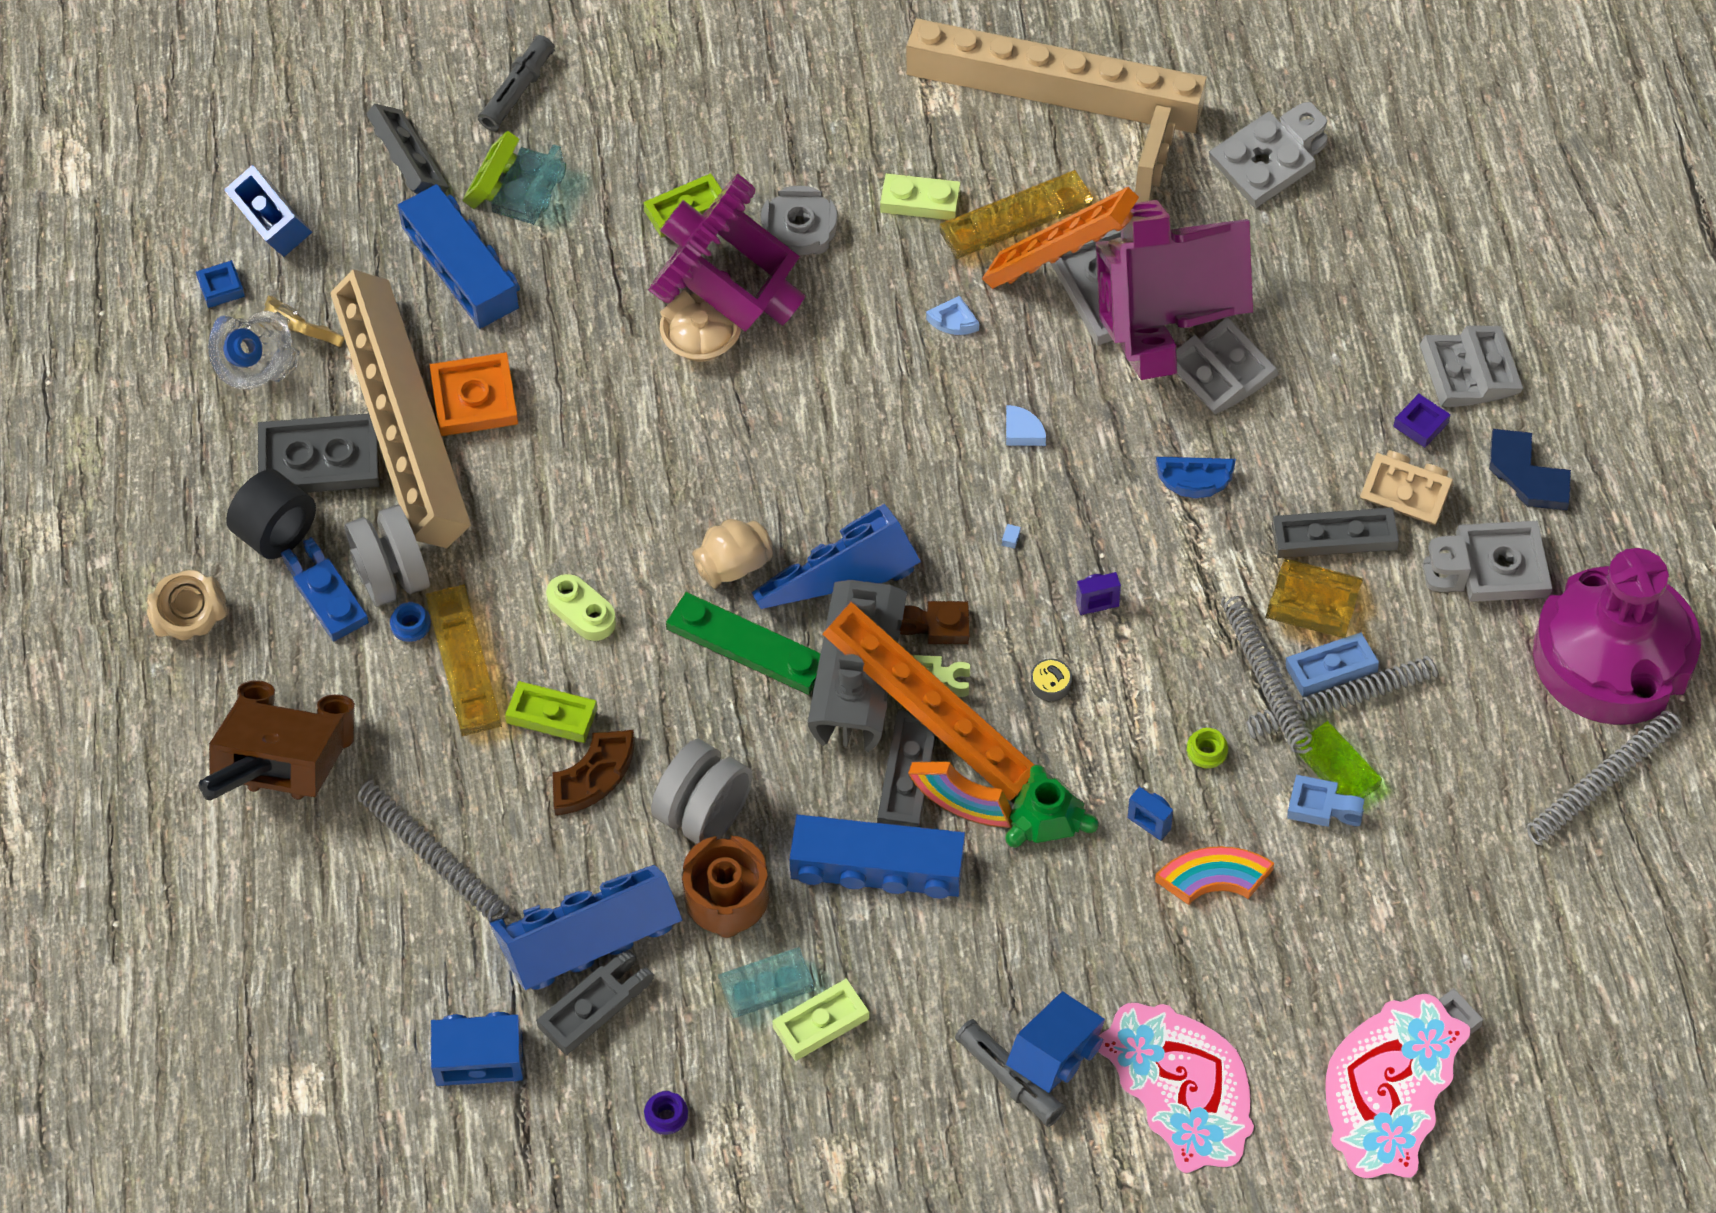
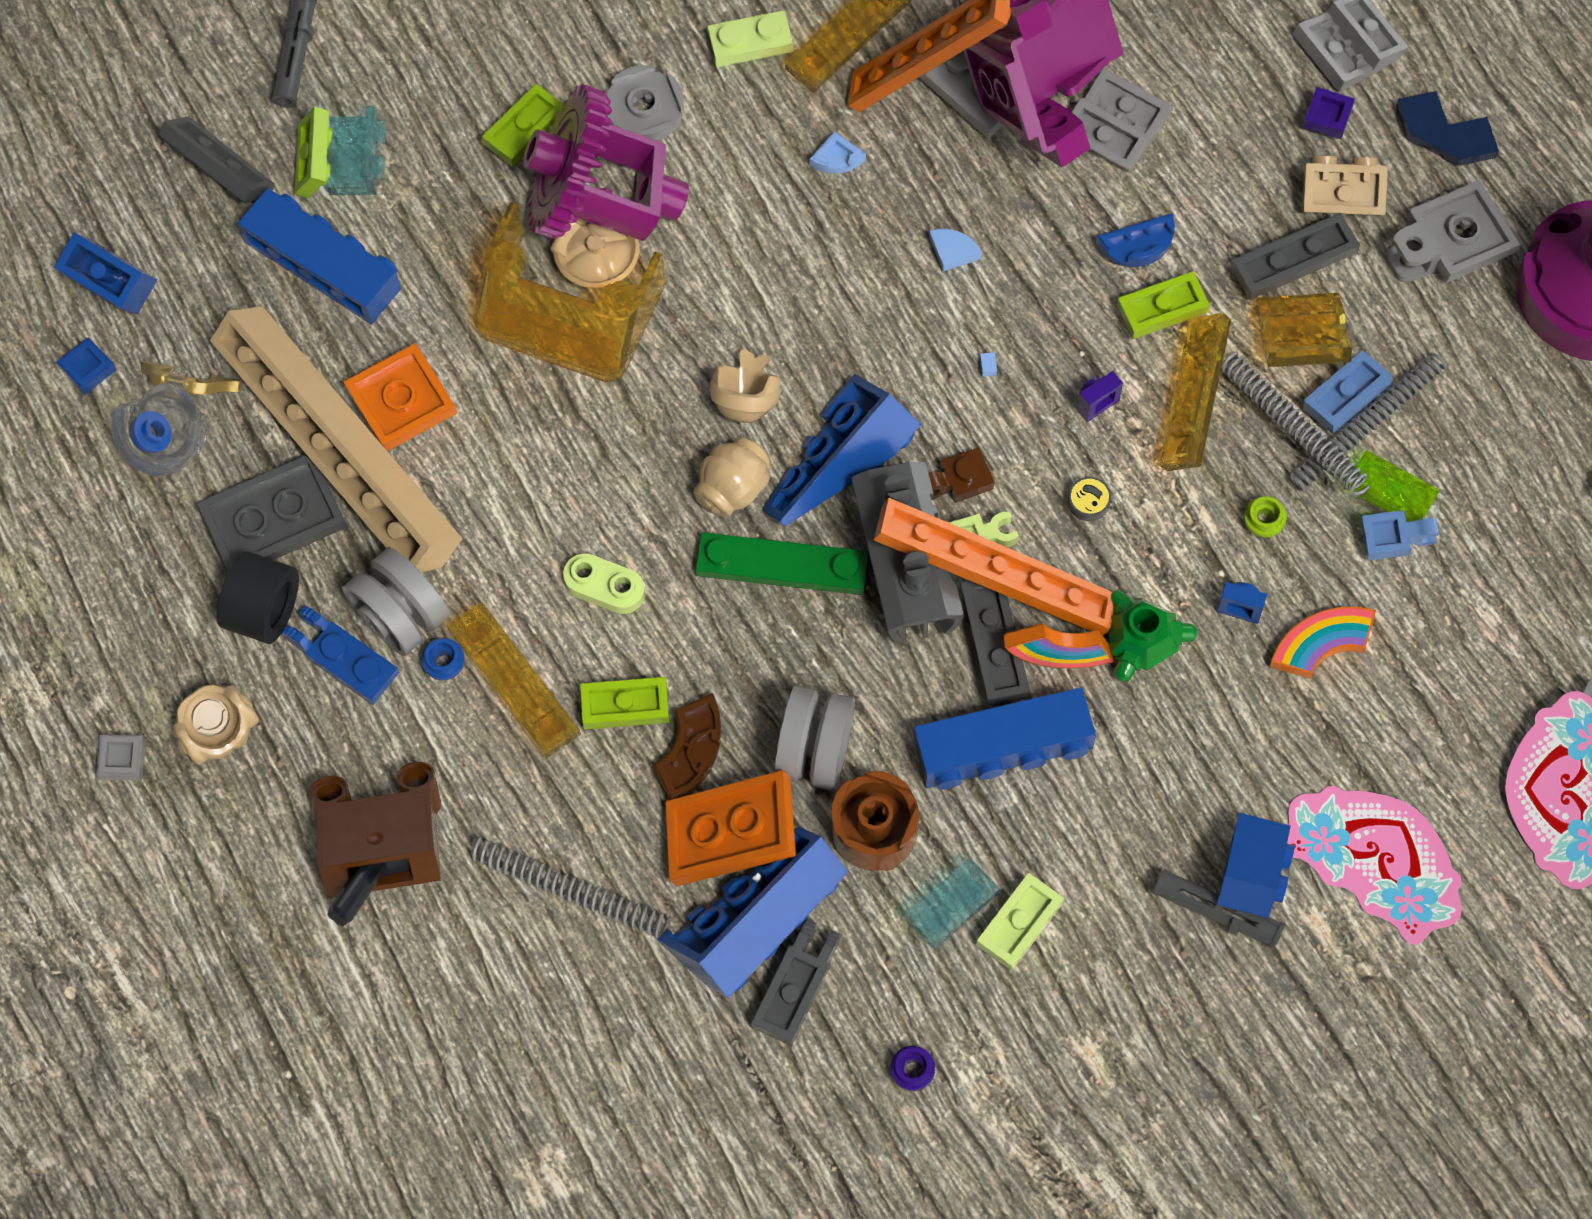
camera: 20 degrees left, 10 degrees up
(97, 611) = (121, 757): none -> light grey tile
(476, 1049) = (706, 1072): blue brick -> none
(592, 844) = (730, 828): none -> orange plate
(639, 381) = (555, 325): none -> clear yellow windscreen
(777, 486) = (746, 391): none -> tan hat
(1188, 618) = (1195, 392): none -> clear yellow plate
(1193, 535) = (1163, 305): none -> lime plate

